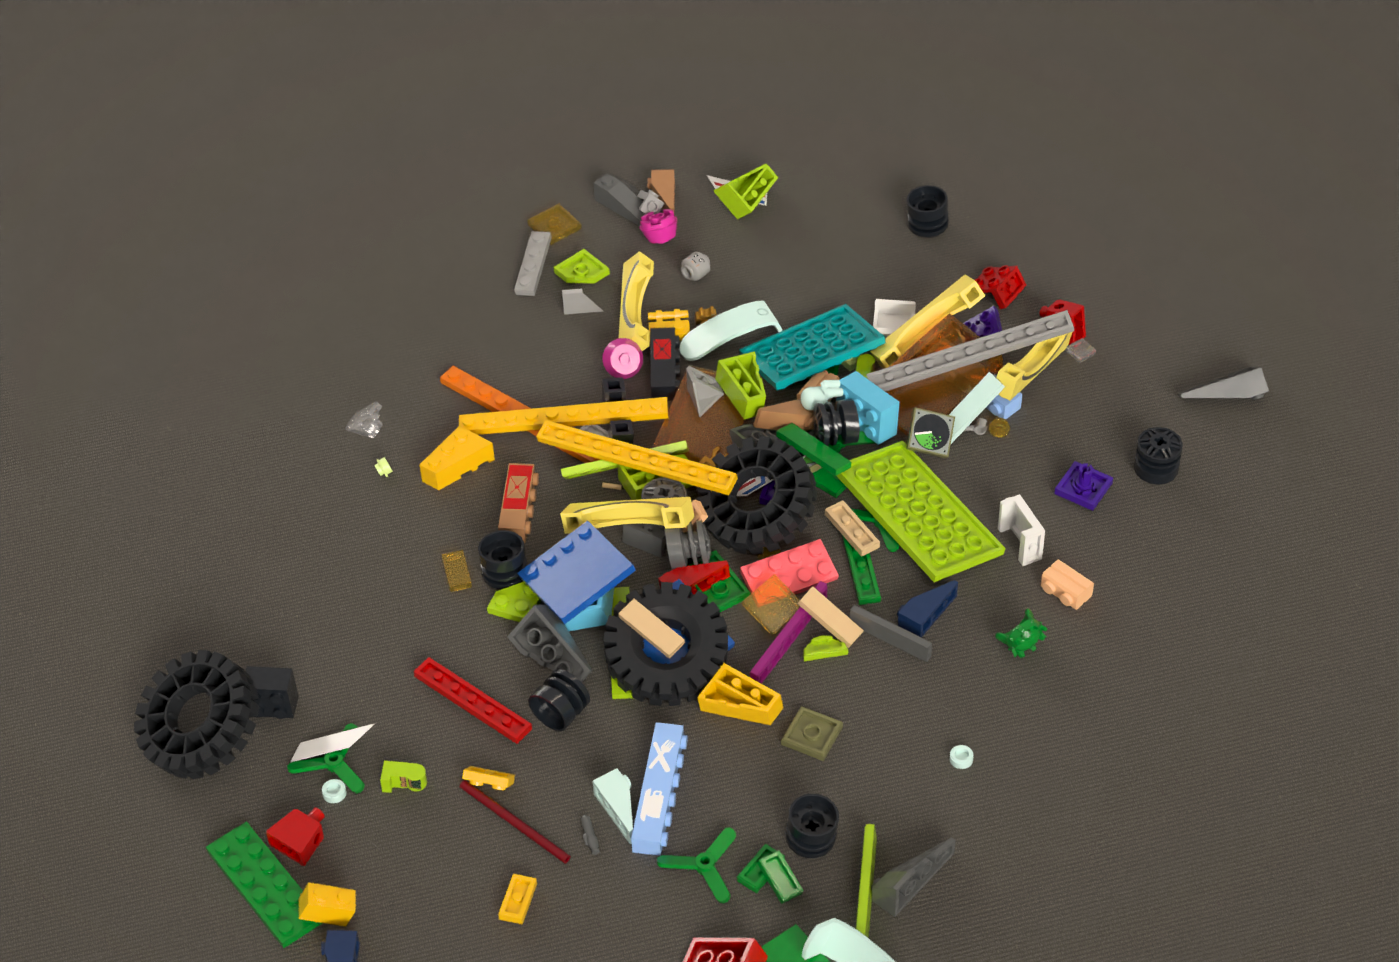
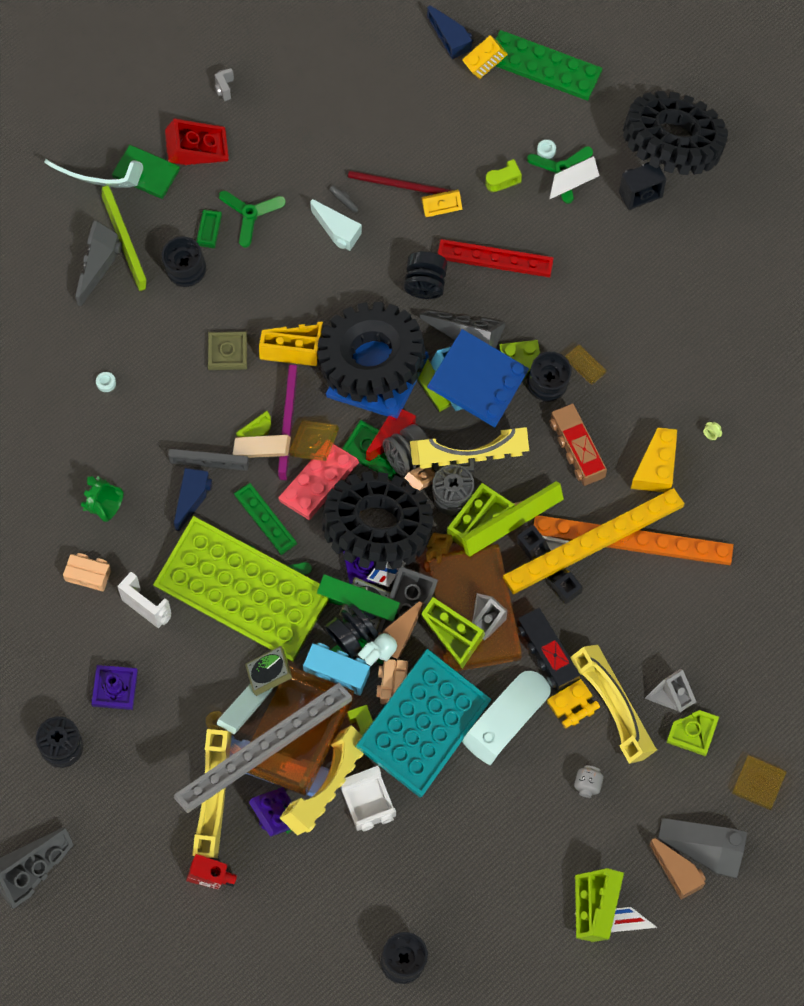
camera: 150 degrees right, 20 degrees up
(297, 834) = (544, 101): red torso -> none
(366, 421) = (761, 466): clear slope -> none
(517, 899) = (363, 128): yellow plate -> none
(533, 263) = (743, 717): light grey plate -> none
(622, 358) = (582, 627): cone -> none
(637, 457) = (496, 504): yellow plate -> none
(650, 202) = (679, 840): light grey bracket -> none
(651, 628) = (383, 341): tan tile -> none
(658, 789) = (314, 250): light blue brick -> none
(659, 227) = (653, 811): dark pink cone -> none
(704, 314) = (543, 721): pearl gold plate -> none
(780, 876) = (190, 223): tile -> none
(852, 528) = (287, 541): tan plate -> none
(1003, 282) = (296, 899): red bracket -> none
(1080, 350) = (181, 856): clear tile -> none

